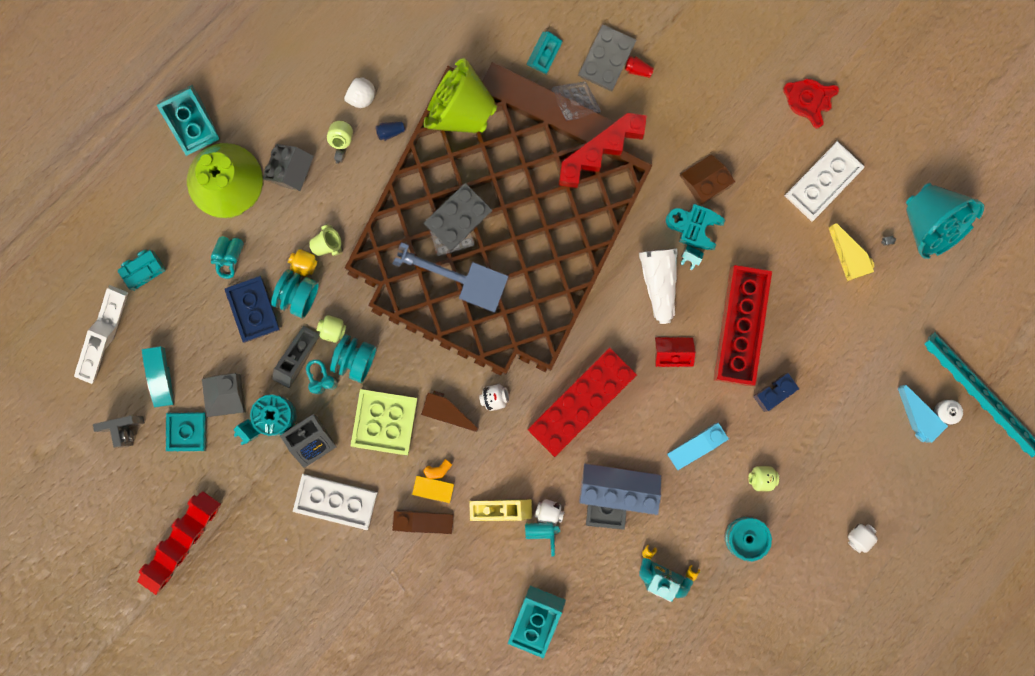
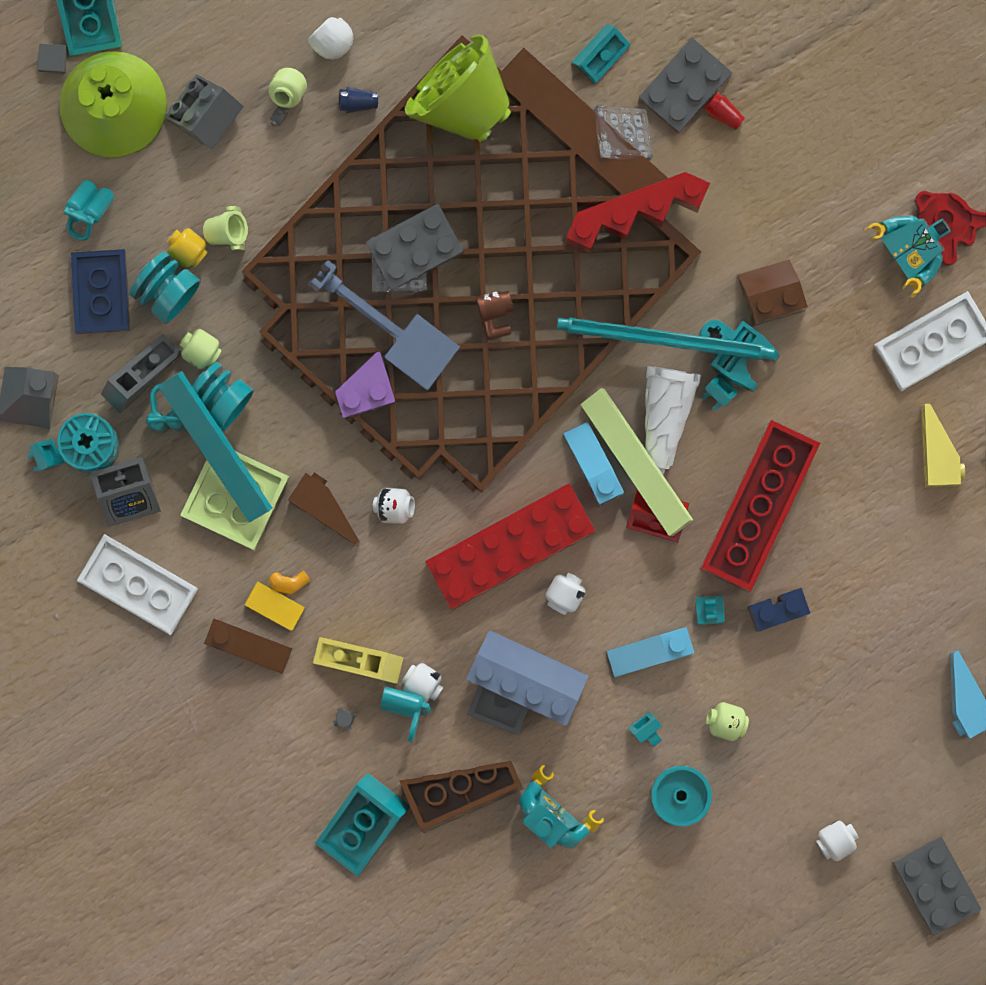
camera: 20 degrees right, 0 degrees up
(174, 161) = (52, 58): none -> dark grey tile
(360, 393) = (215, 447): none -> teal tile
(452, 323) = (366, 389): none -> medium lavender wing
(503, 552) = (344, 718): none -> dark grey piece
(523, 242) = (494, 306): none -> copper piece
(593, 583) = (459, 792): none -> reddish brown wedge
(621, 330) = (593, 464): none -> medium azure slope
(628, 423) = (565, 593): none -> white head
(642, 231) = (665, 338): none -> teal piece
(651, 320) = (636, 462): none -> yellowish green tile
(710, 499) = (646, 728): none -> teal tile
(728, 405) = (709, 610): none -> teal tile
(793, 121) = (913, 246): none -> teal torso
(937, 548) = (937, 886): none -> dark grey plate

